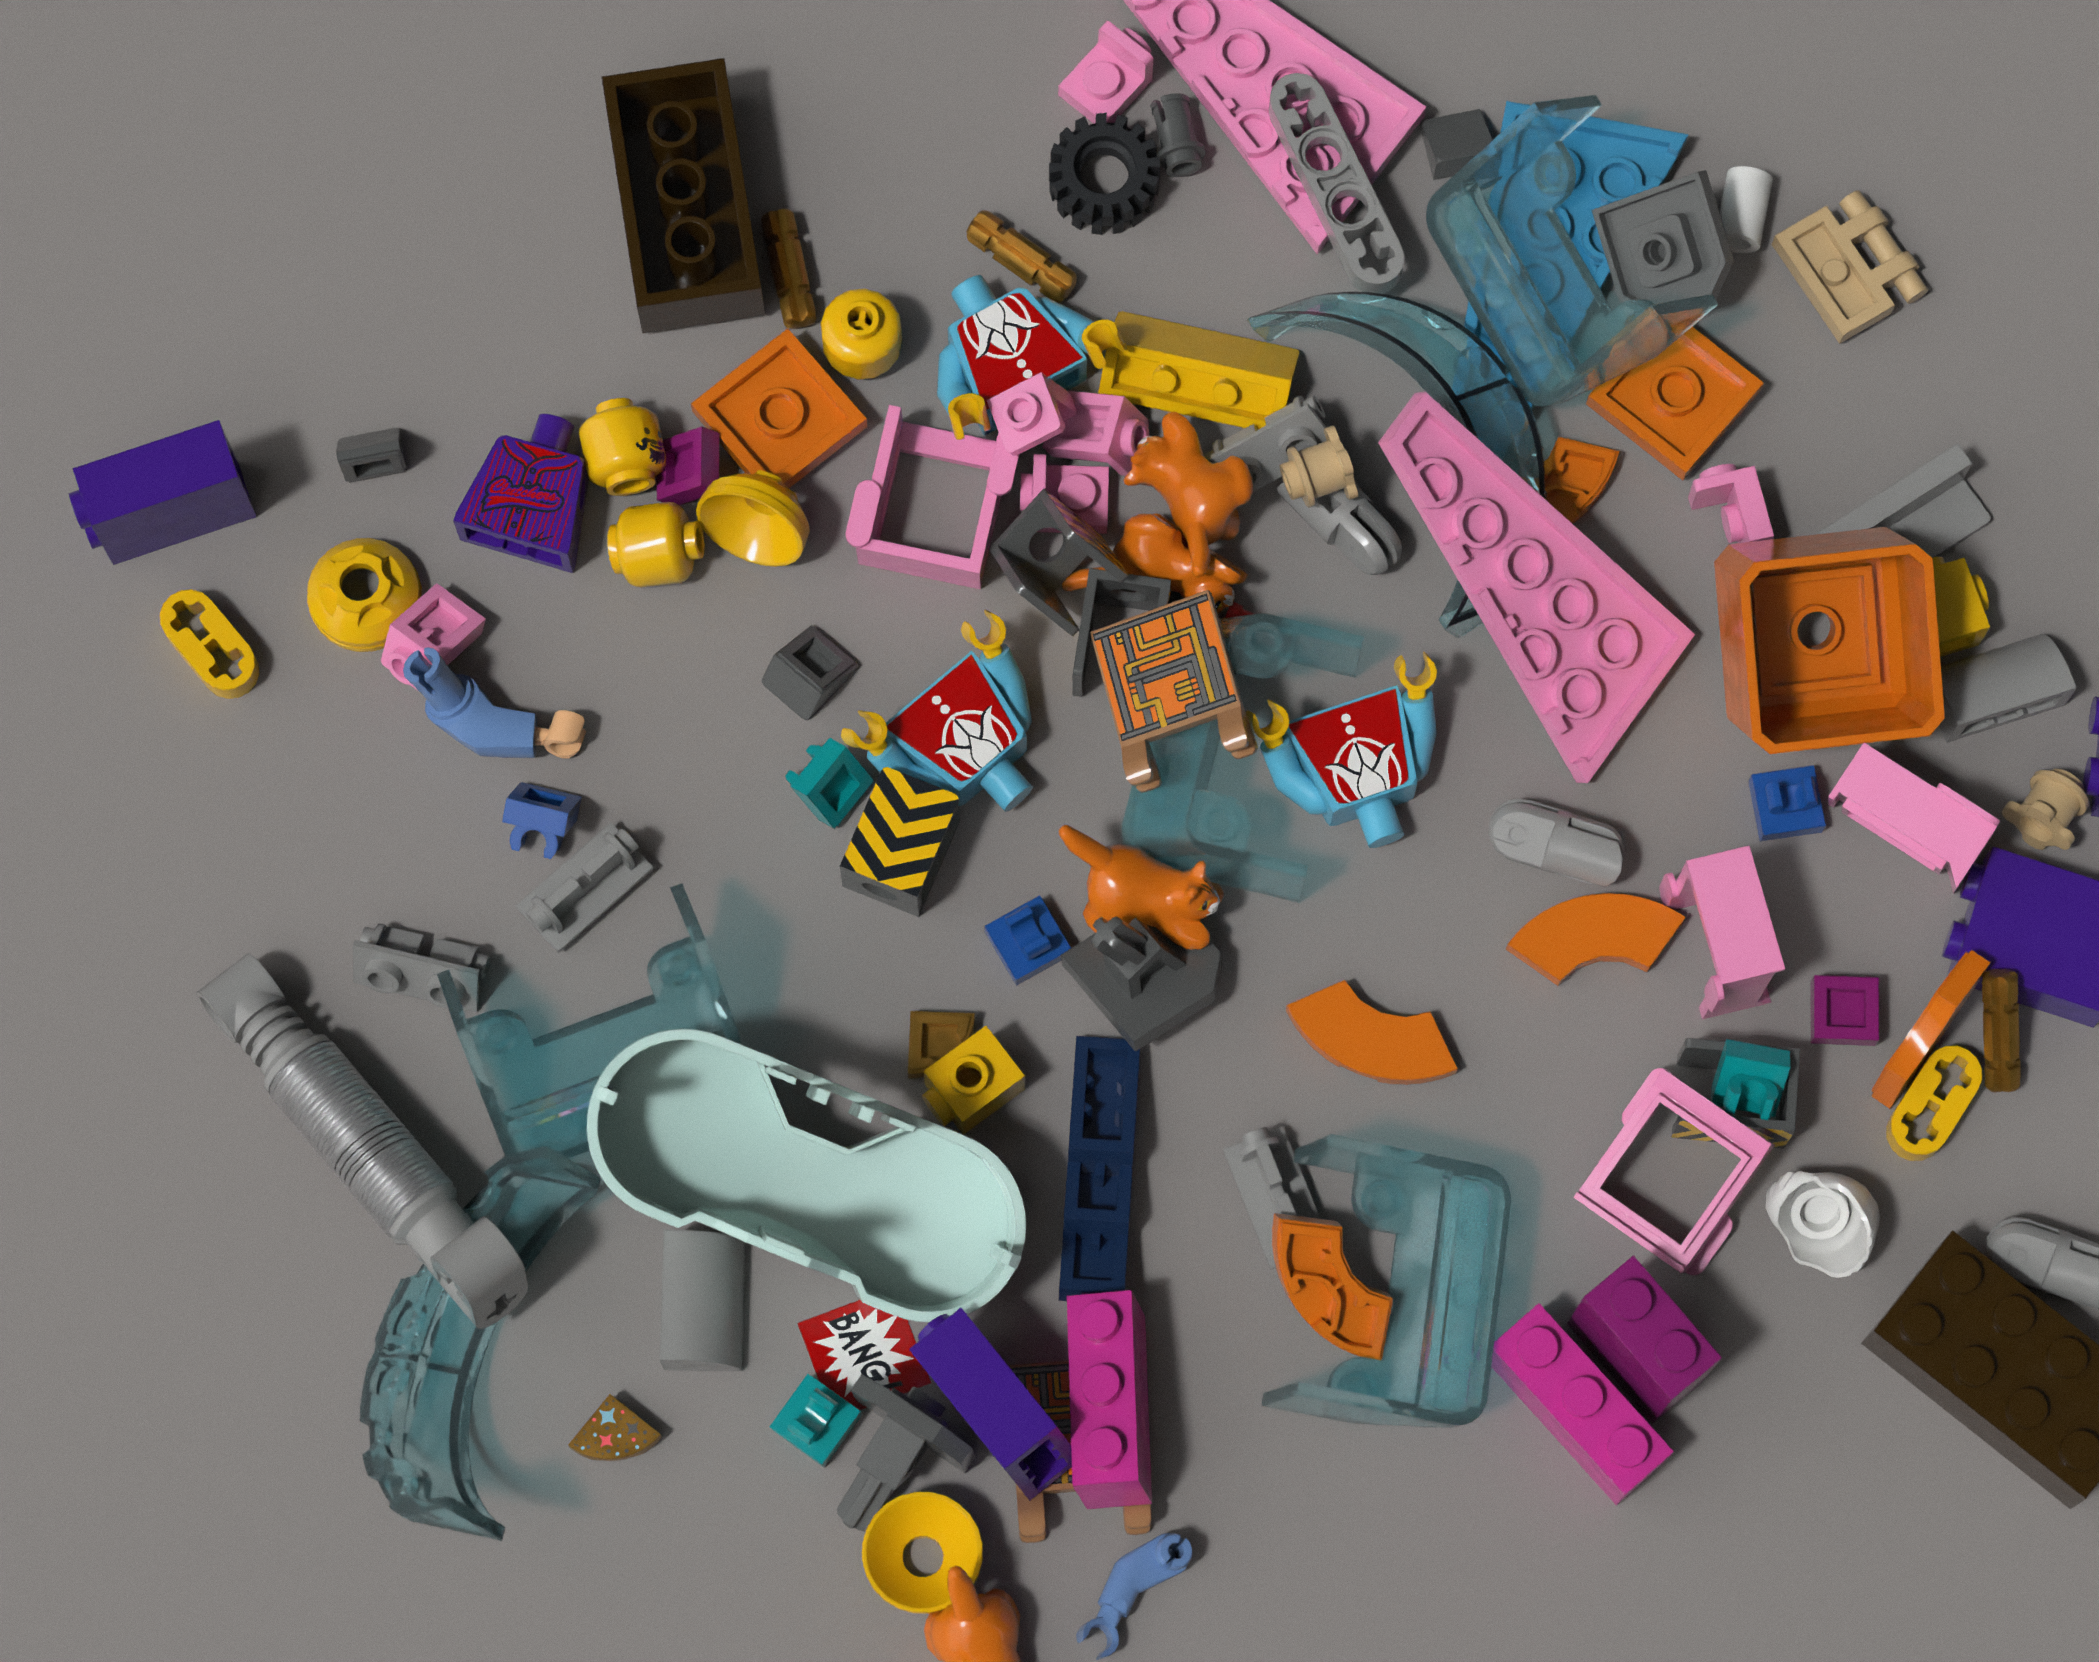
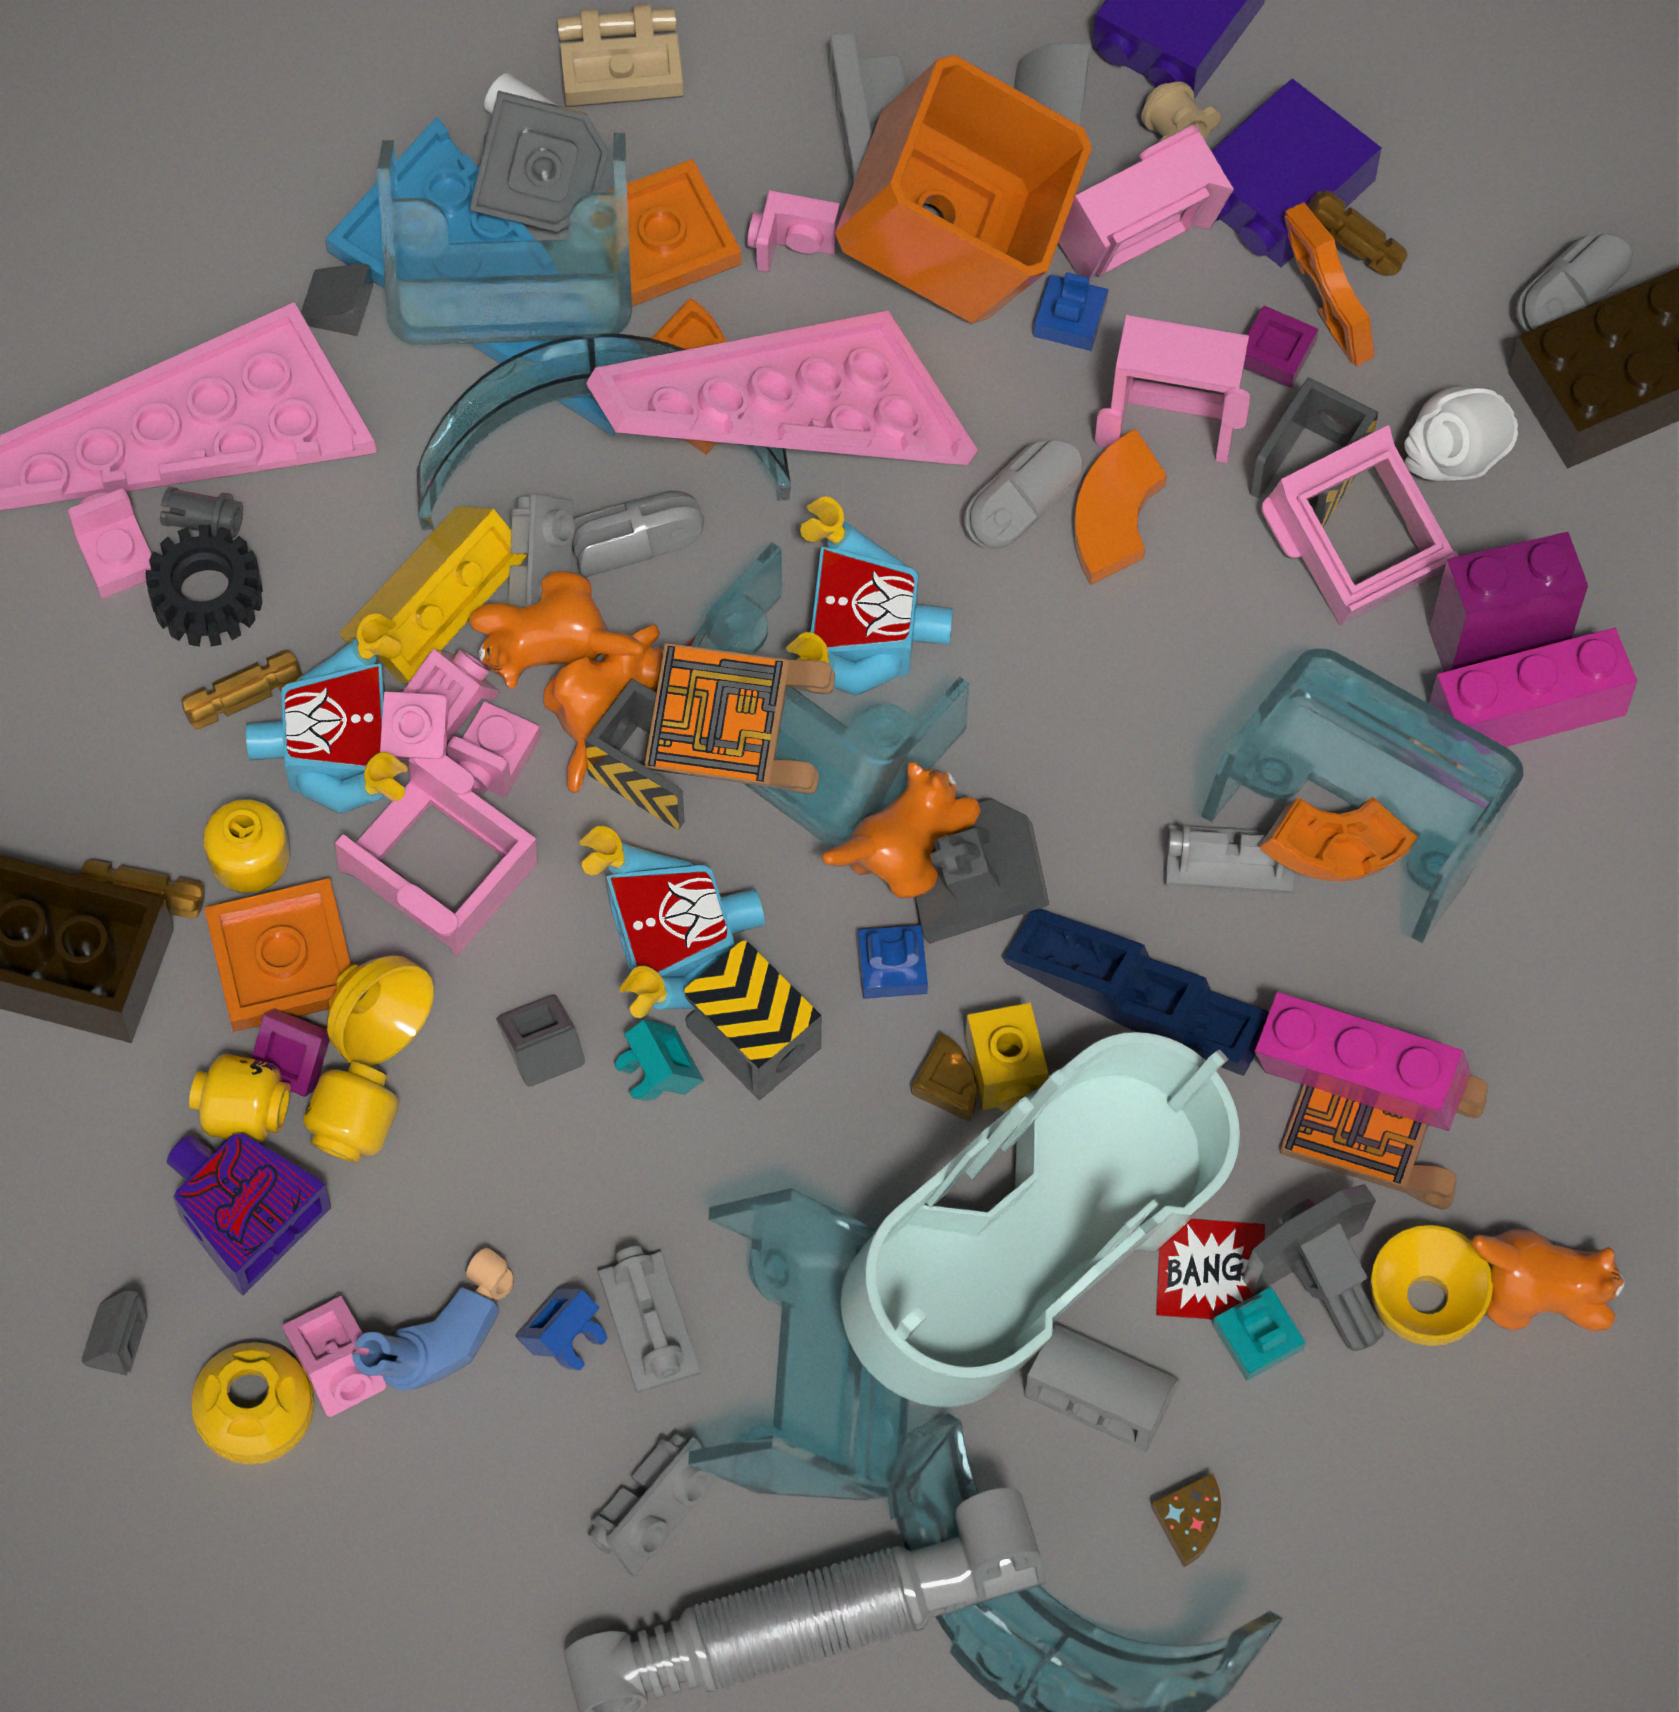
camera: 65 degrees left, 10 degrees down
(161, 493) = (60, 1530): dark purple brick -> none
(198, 653) = (231, 1581): yellow beam -> none
(993, 1402) = (1325, 1150): dark purple brick -> none
(1039, 578) = (539, 746): dark grey piece -> none
(1132, 1574) = (1522, 1127): medium blue arm -> none
(1319, 470) = (596, 513): tan brick -> none
(1342, 181) = (329, 387): light grey beam -> none
(1370, 1041) = (1122, 724): orange tile -> none
(1750, 1078) = (1316, 424): teal tile -> none
(1946, 1111) = (1395, 313): yellow beam -> none

